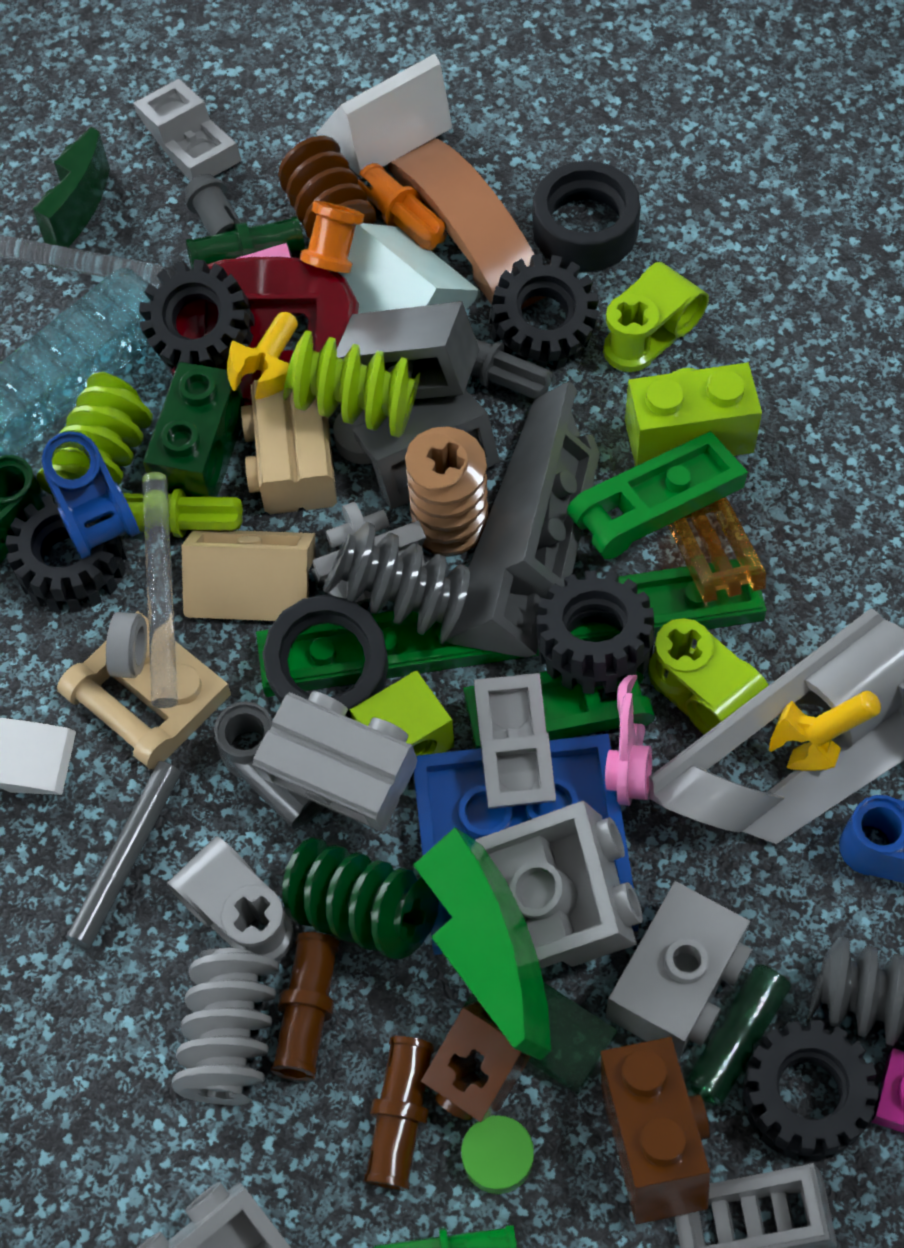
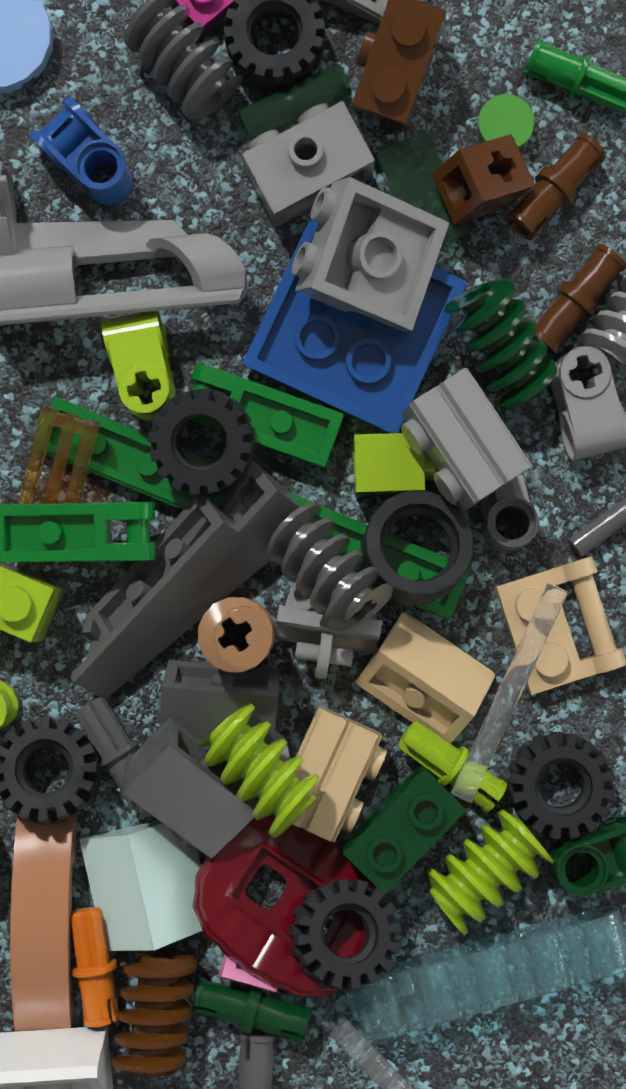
camera: 150 degrees left, 25 degrees up
(88, 496) = (531, 791): blue piece -> none
(126, 645) = (564, 647): light grey tile -> none
(264, 357) = (311, 854): yellow bar -> none
(332, 237) = (184, 944): orange bush -> none
(488, 940) = (440, 229): green slope -> none
(514, 741) = (317, 392): light grey slope -> none
(631, 765) = (248, 317): bright pink plate -> none
(821, 751) = (97, 257): yellow bar -> none

